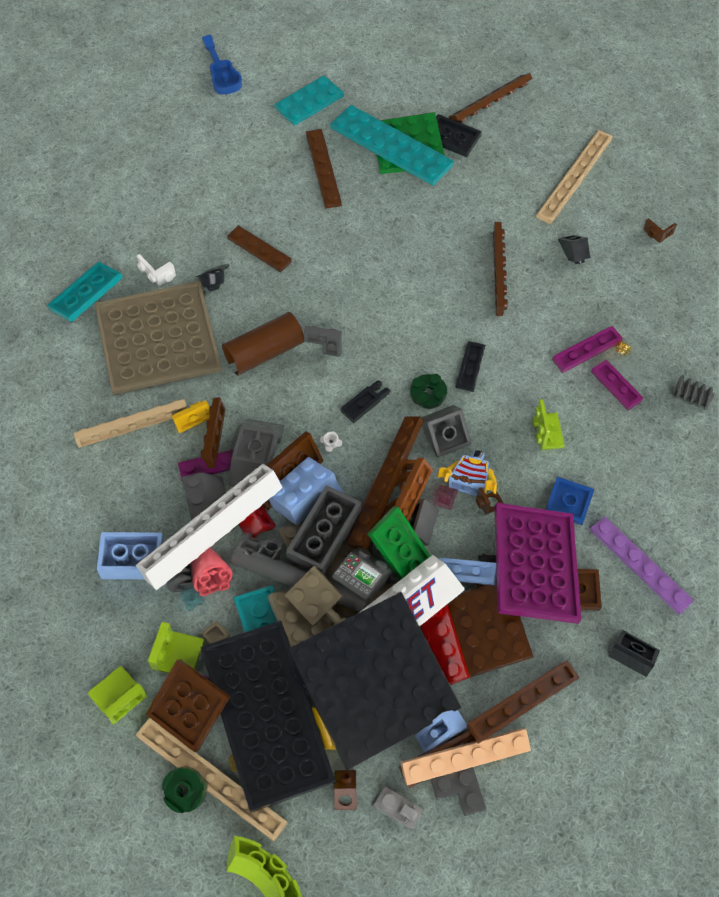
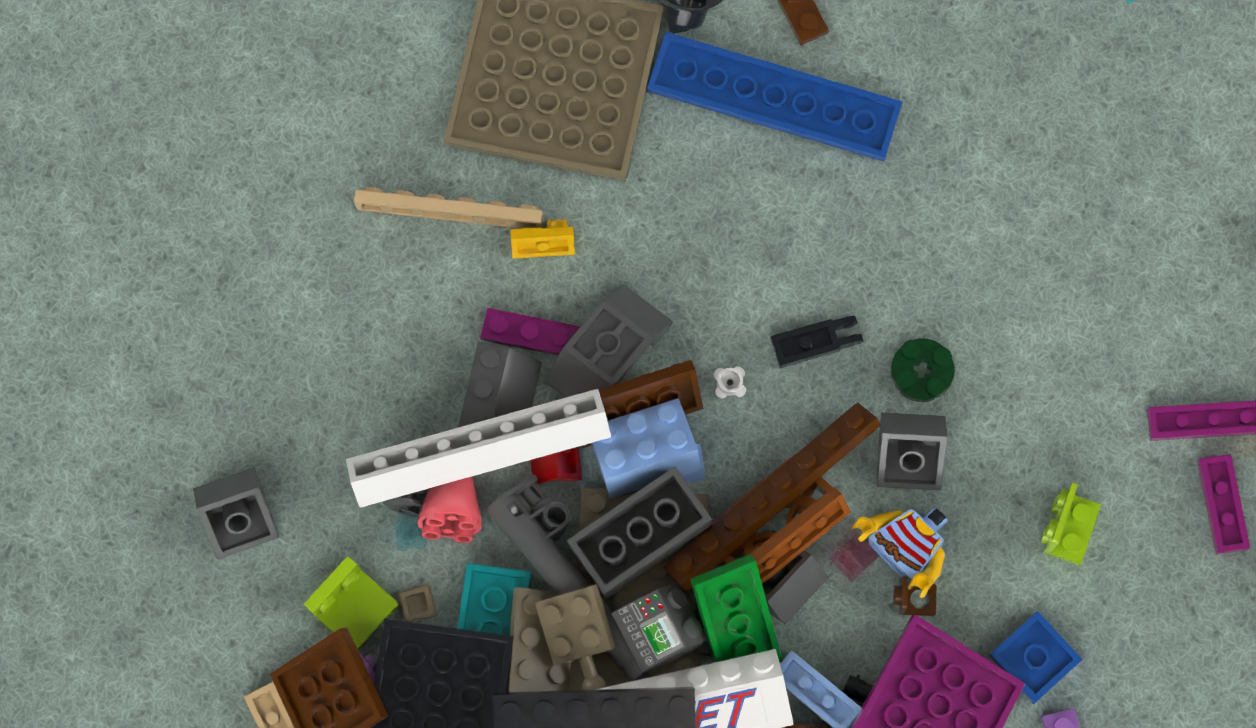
camera: 30 degrees right, 15 degrees up
(82, 634) = (235, 513): none -> dark grey slope
(117, 695) = (245, 625): lime bracket -> none
(122, 551) = (349, 423): light blue brick -> none
(213, 435) = (565, 279): reddish brown plate -> none
(263, 343) = (707, 170): reddish brown piece -> none
(279, 298) = (774, 96): none -> blue plate
(329, 338) = (810, 216): dark grey plate -> none
(470, 366) = (1012, 358): black tile -> none
(500, 274) = (1160, 197): reddish brown plate -> none

